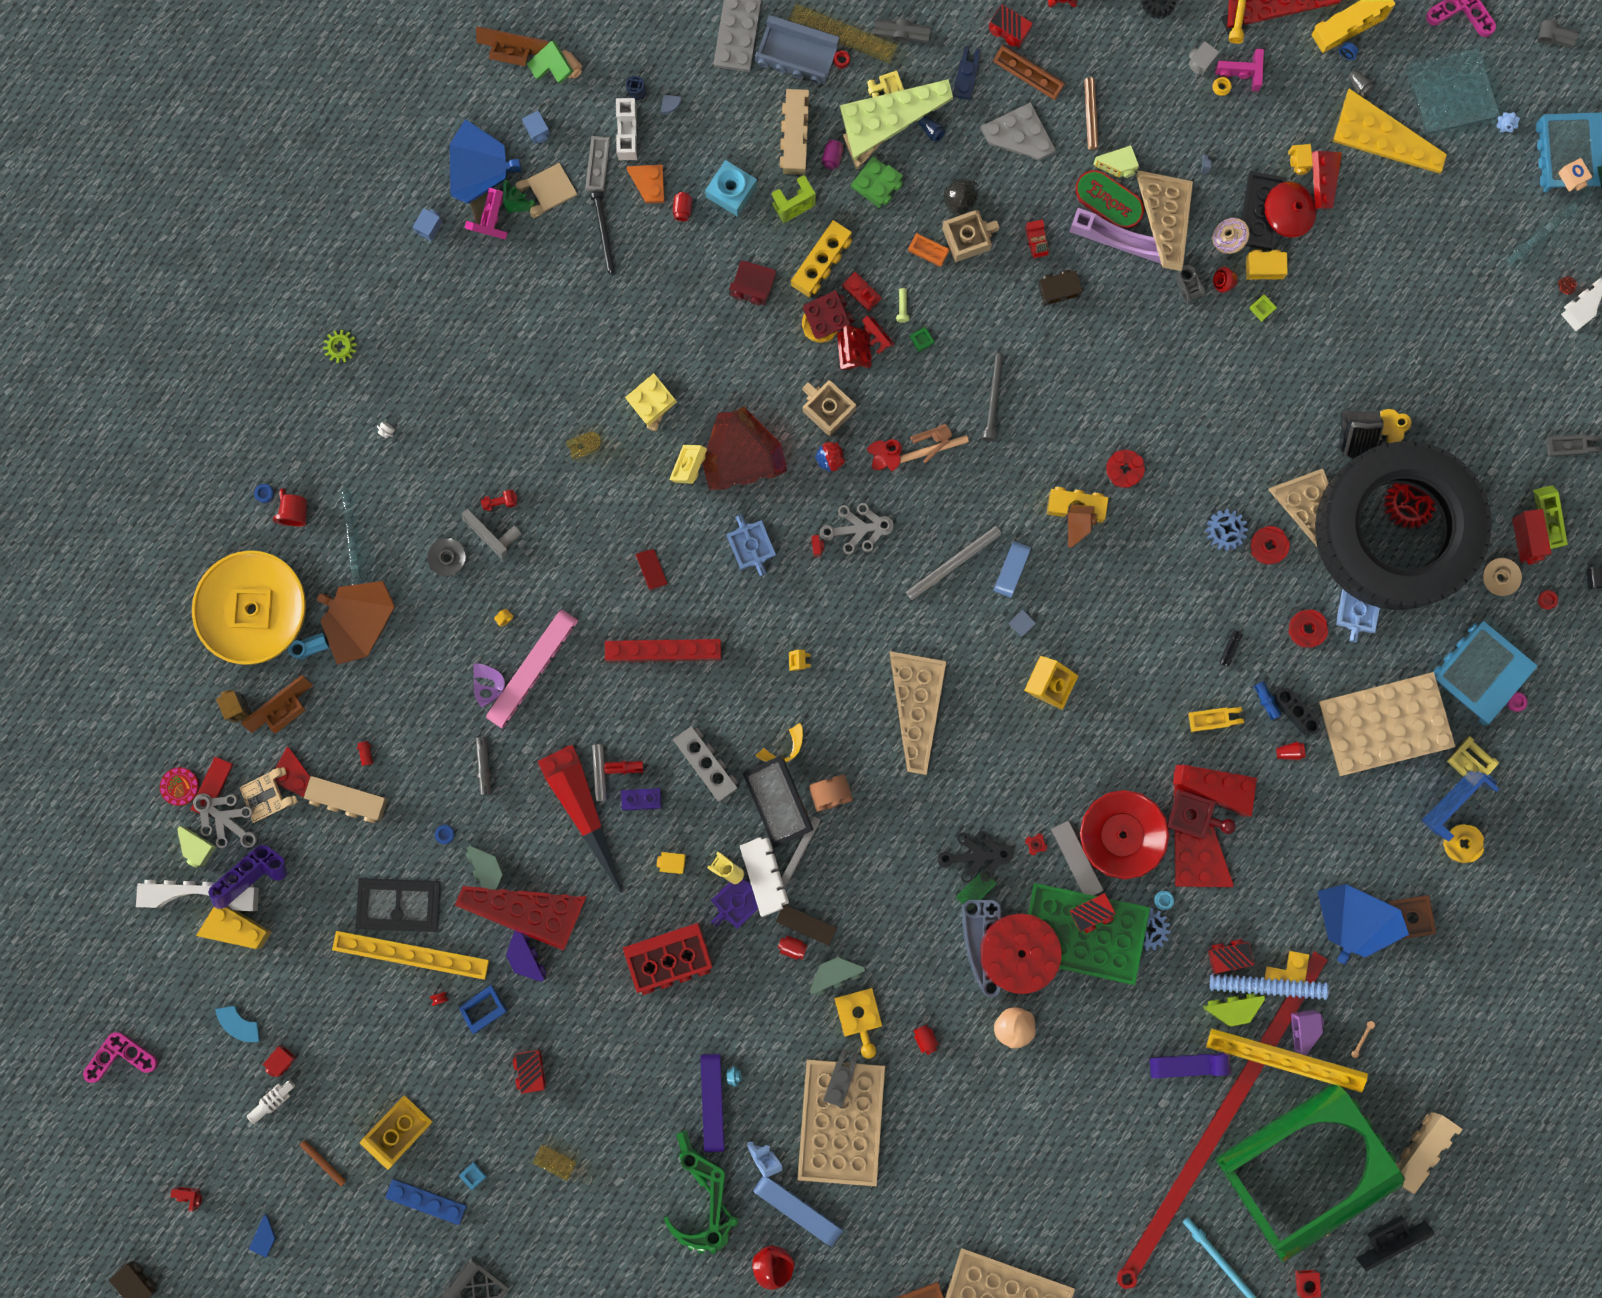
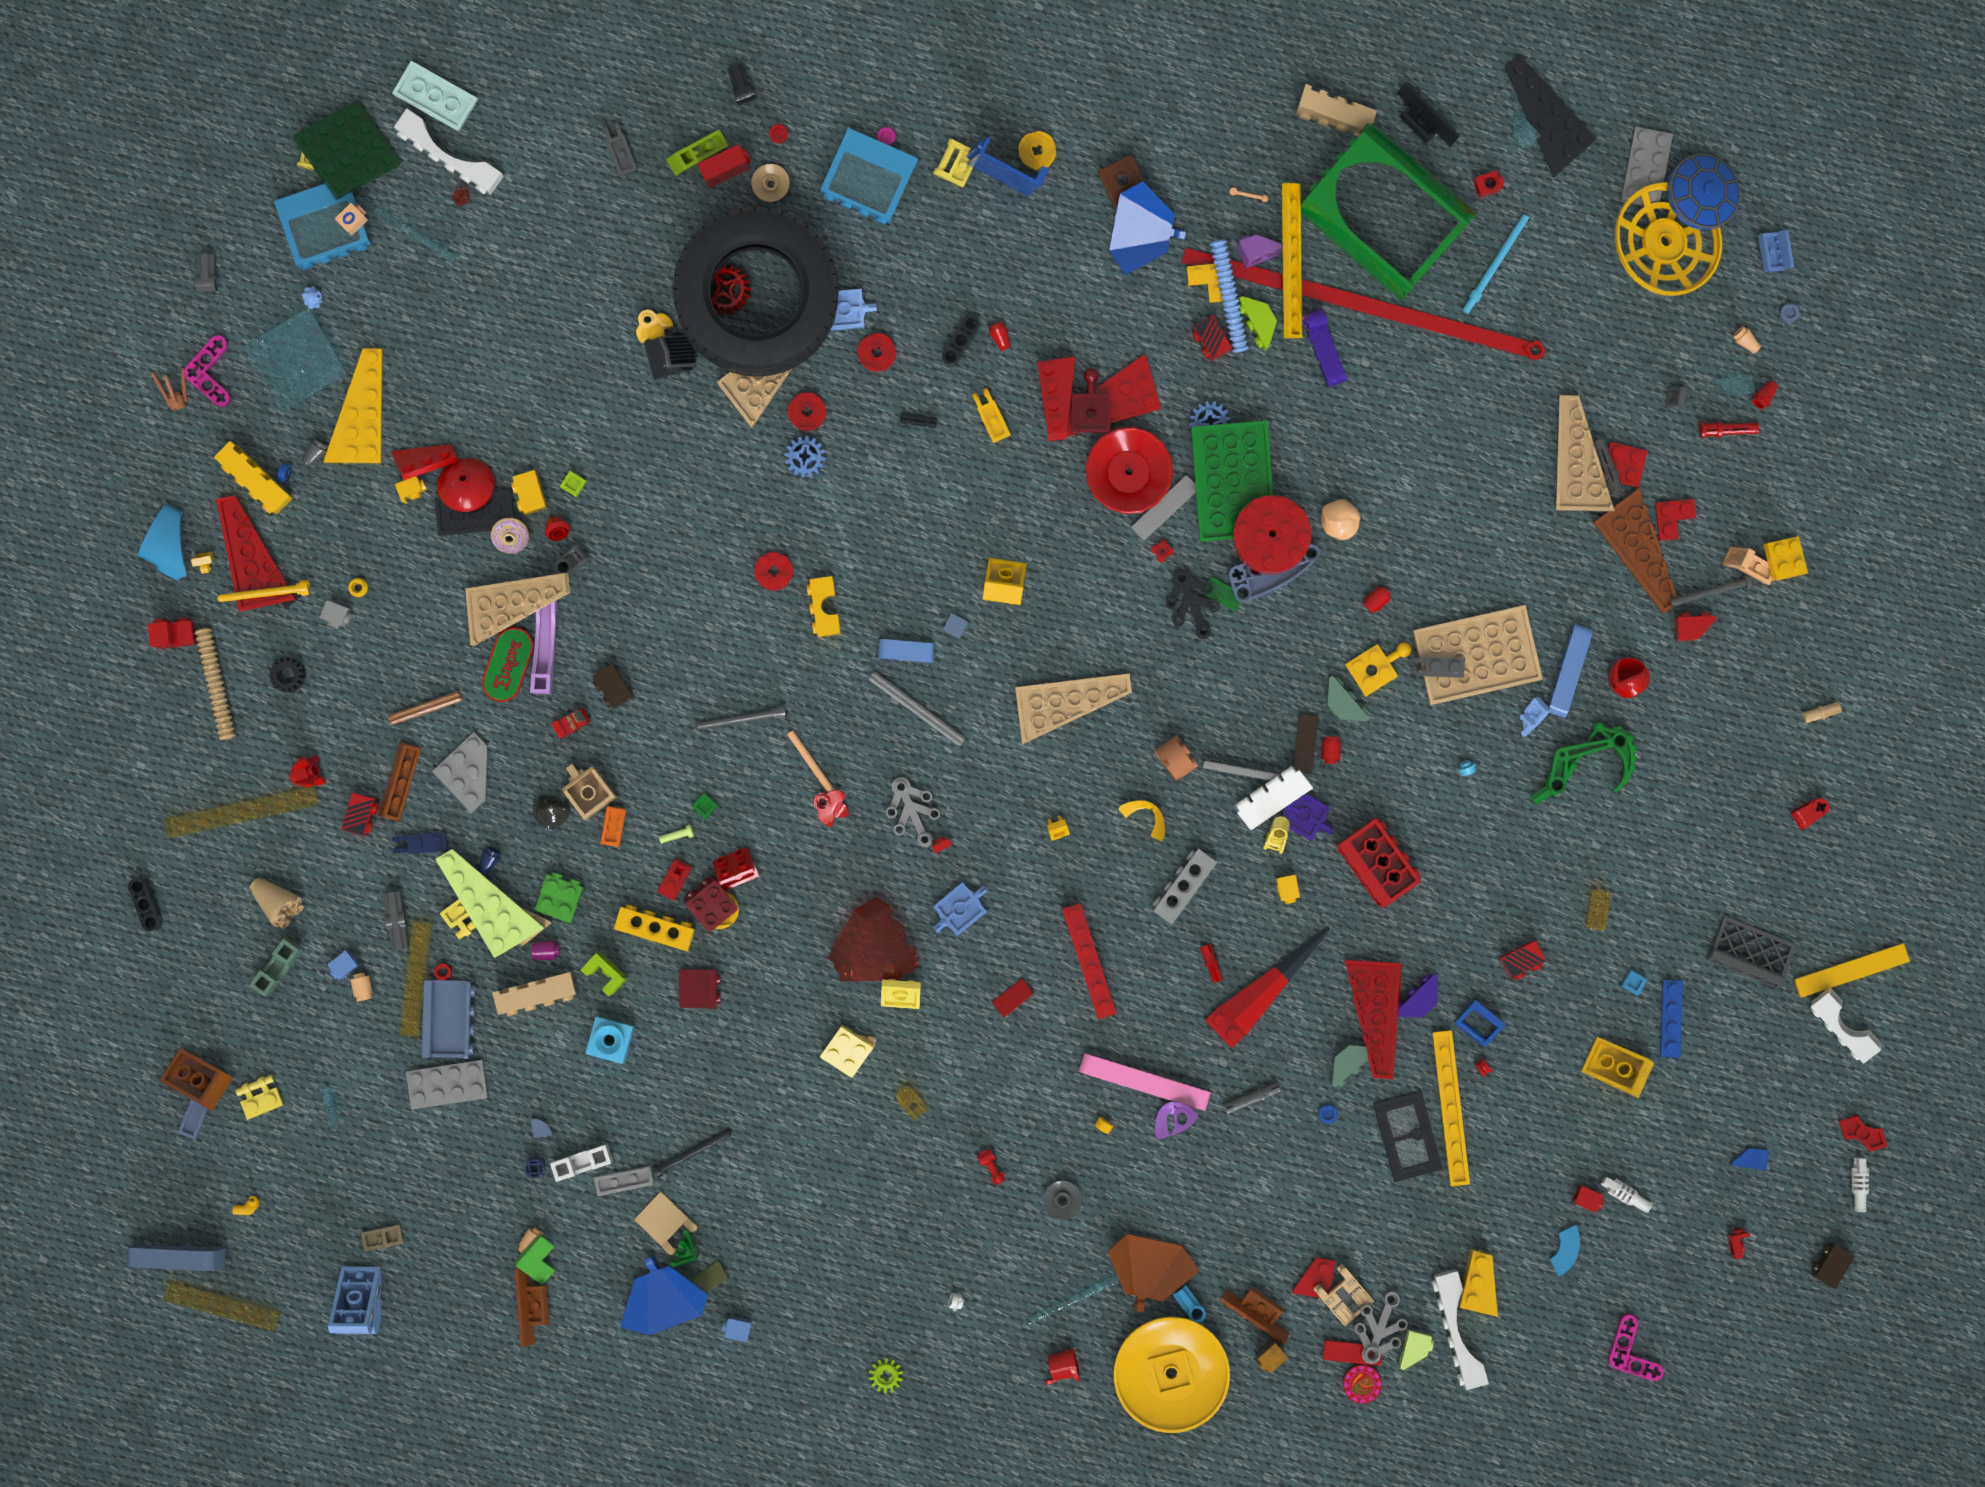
camera: 110 degrees left, 5 degrees up
(225, 892) = (1450, 1303): dark purple beam -> none
(264, 493) = (1054, 1400): blue tile -> none
(323, 1163) = (1667, 1126): dark orange bar -> none
(346, 799) = (1324, 1219): tan brick -> none
(365, 753) = (1275, 1215): red pin -> none
(489, 216) = (714, 1268): dark pink bracket -> none
(497, 545) = (1036, 1153): light grey piece -> none
(536, 127) = (606, 1253): medium blue brick -> none
(599, 773) = (1223, 985): light grey axle -> none
(641, 799) = (1237, 936): dark purple brick -> none
(649, 182) = (627, 1124): orange wing -> none
(682, 206) = (643, 1082): red brick -> none
(712, 1103) = (1497, 780): dark purple beam -> none
(778, 801) = (1198, 806): clear door -> none
(827, 406) = (801, 876): tan hinge -> none
(830, 456) = (850, 859): red piece -> none
(874, 328) = (709, 854): red plate -> none
(940, 434) = (795, 759): nougat plant -> none
(1080, 522) = (843, 598): dark orange slope -> none
(1092, 913) = (1213, 478): brick -> none
(1118, 162) = (468, 666): yellowish green slope -> none
(1164, 900) = (1177, 415): medium azure plate -> none
(1206, 164) = (442, 580): sand blue tile -> none
(1244, 70) = (336, 569): dark pink bracket -> none
(1267, 700) = (957, 371): blue pin -> none
(1386, 724) = (946, 253): tan plate -> none

